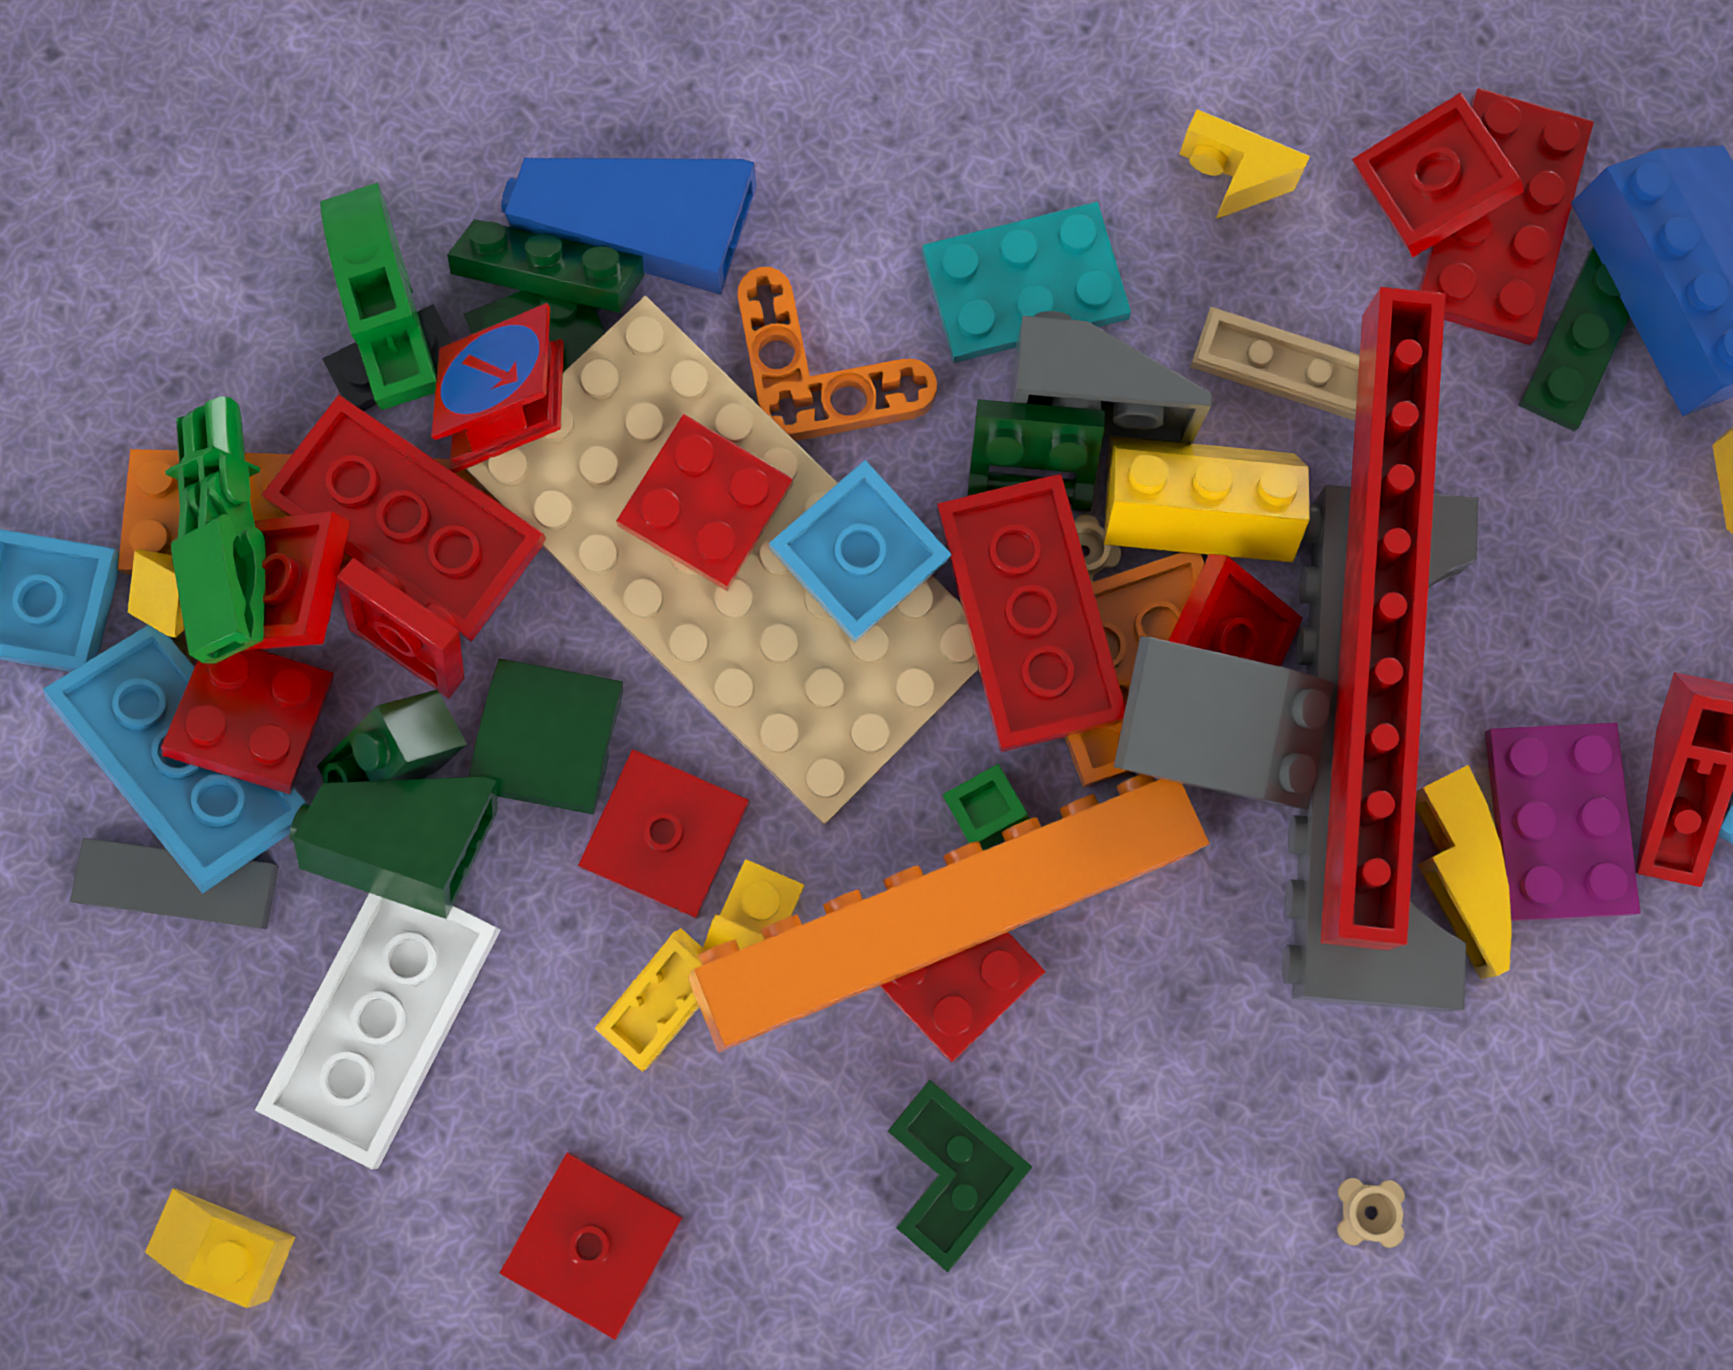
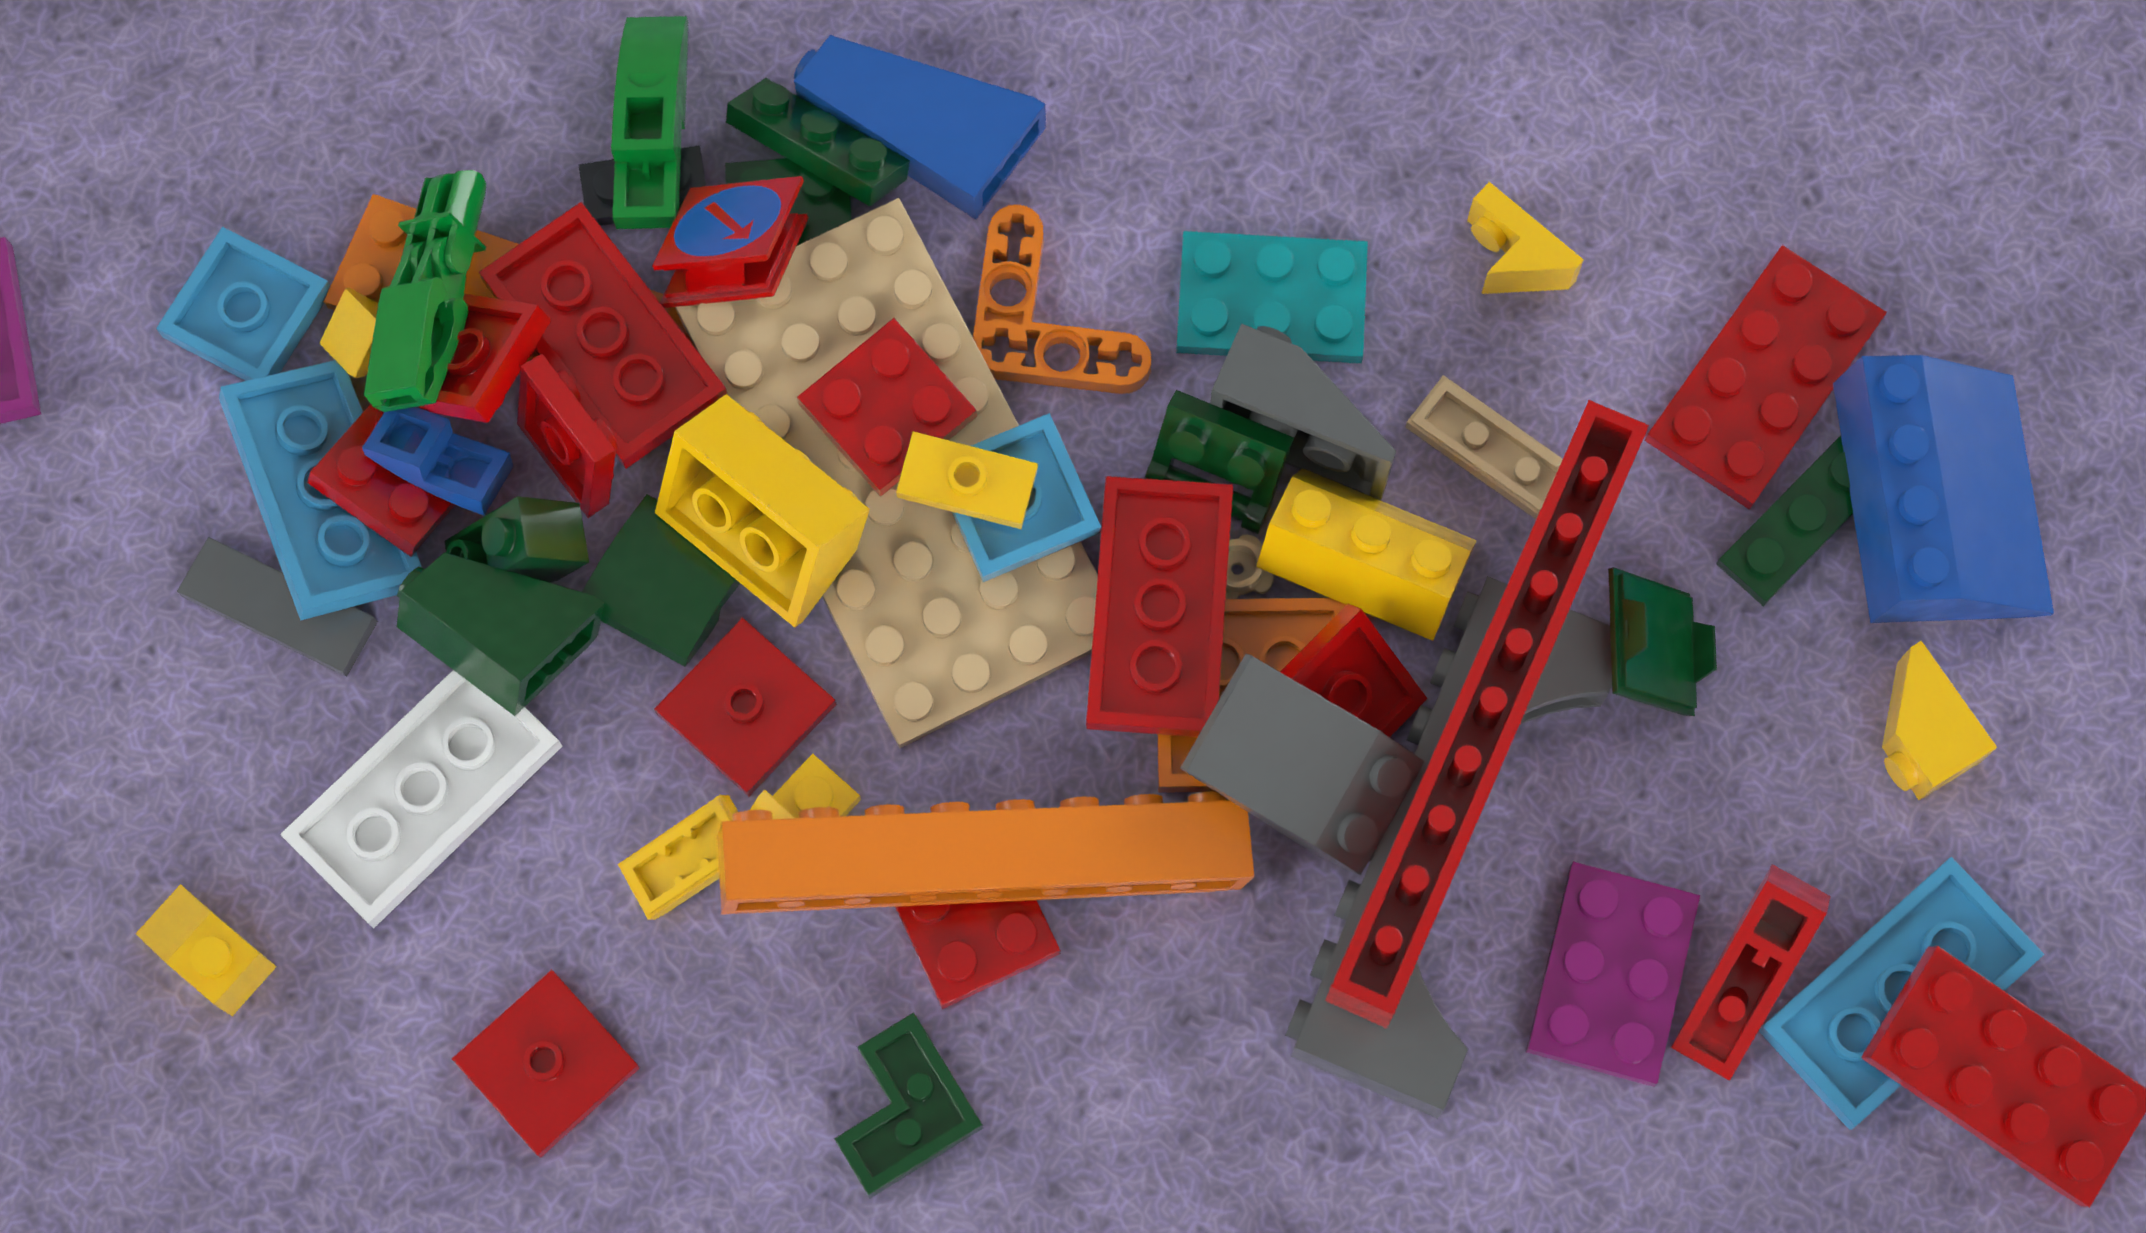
camera: 20 degrees right, 5 degrees down
(284, 693) = (432, 457): none -> blue slope
(616, 640) = (759, 508): none -> yellow slope
(810, 550) = (967, 480): none -> yellow plate
(986, 807) = (1056, 774): green plate -> none
(1437, 174) = (1705, 316): red plate -> none
(1468, 870) = (1500, 981): yellow slope -> none
(1502, 498) = (1657, 644): none -> dark green piece

